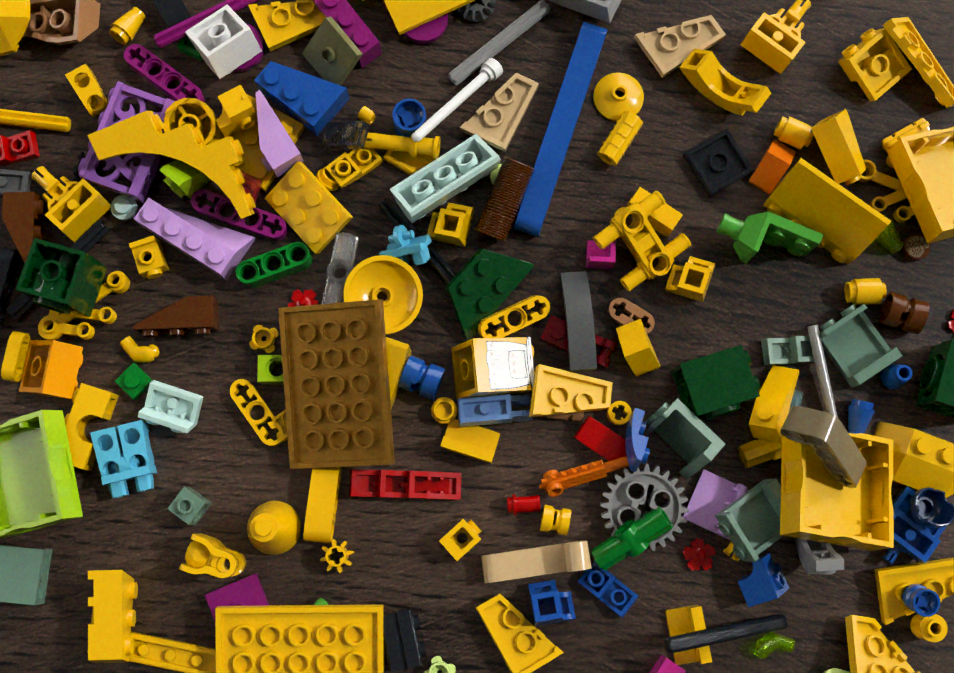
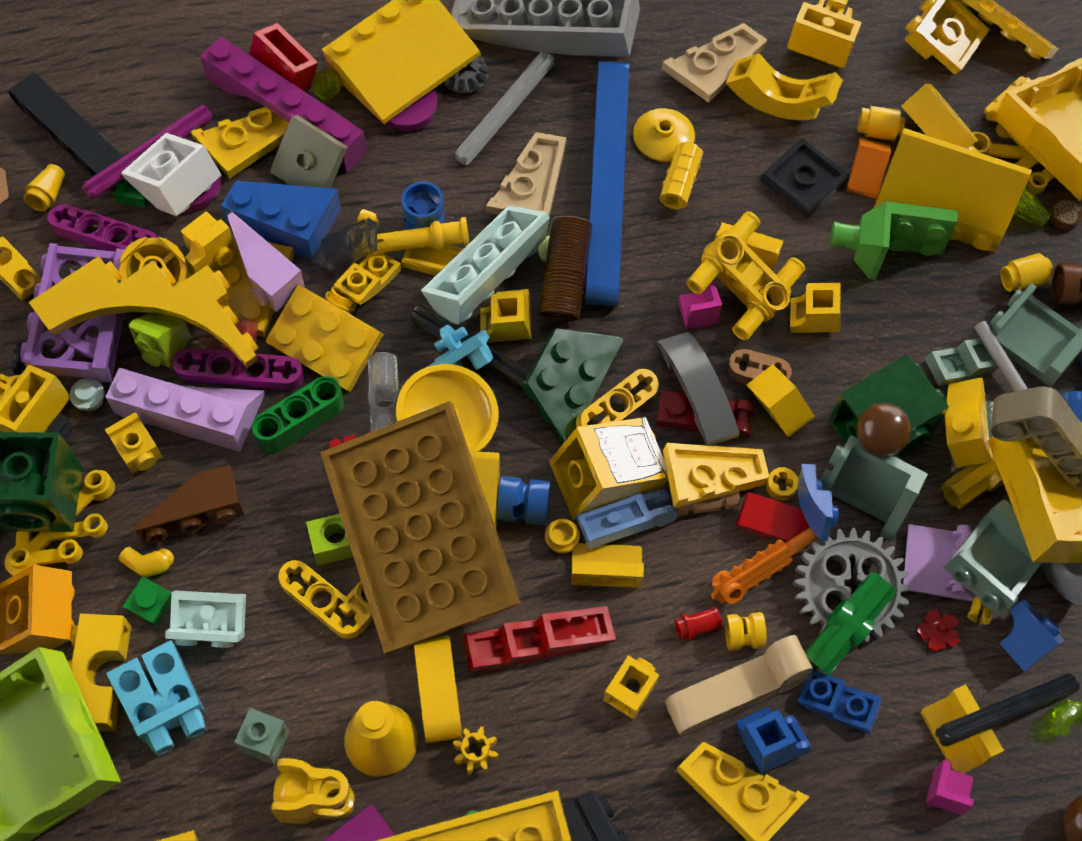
camera: 15 degrees left, 15 degrees down
(259, 332) = (302, 498): yellow plate -> none
(489, 72) = (503, 139): white piece -> none
(702, 402) = (883, 429): none -> reddish brown hair

